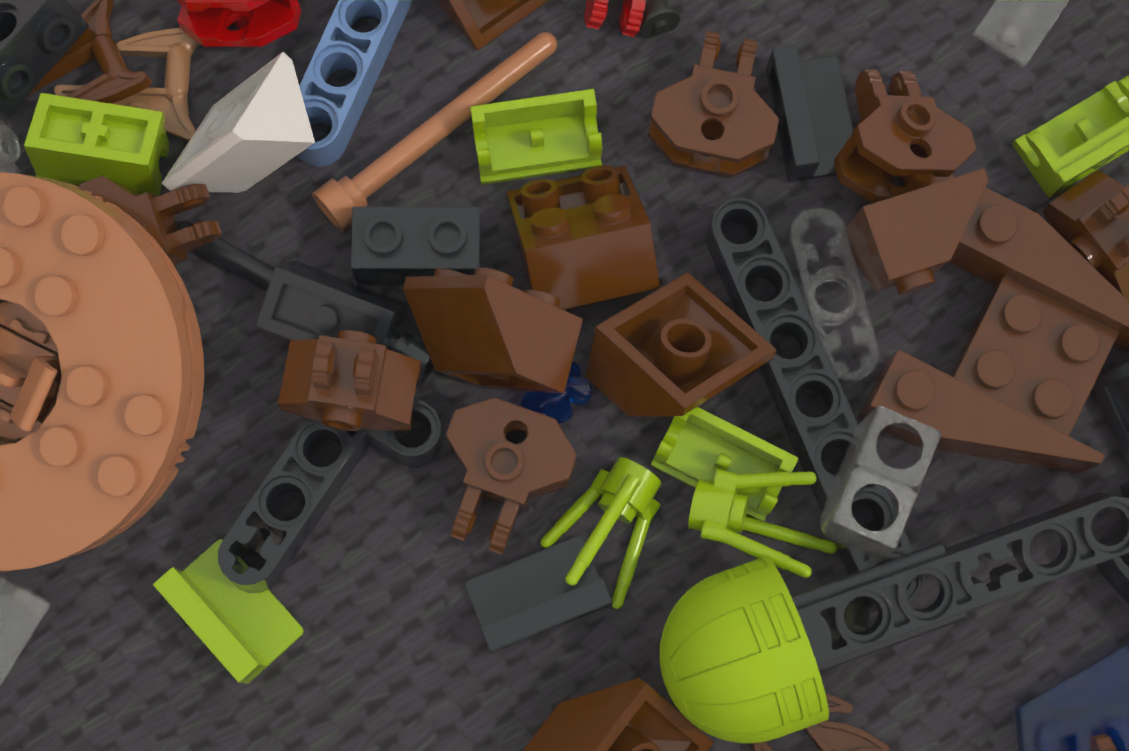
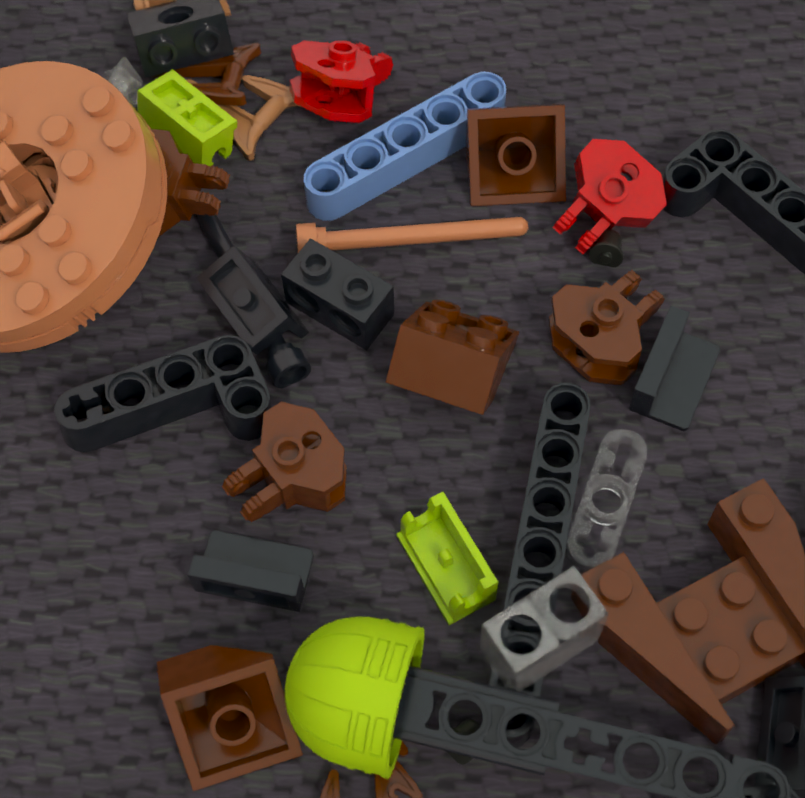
camera: 40 degrees right, 15 degrees down
(236, 626) = (40, 459): lime panel -> none
(247, 133) = (275, 160): white slope -> none
(349, 383) = (221, 333): reddish brown hinge -> none
(492, 331) = (343, 365): reddish brown slope -> none
(536, 136) = (469, 273): lime hinge -> none
(557, 405) = (364, 444): clear blue plant -> none
(625, 494) = (360, 537): lime plant -> none
(673, 351) = (461, 454): reddish brown slope -> none
(722, 515) = (420, 590): lime plant -> none
(901, 138) = (724, 420): reddish brown hinge -> none
(914, 233) = (691, 475): reddish brown slope -> none

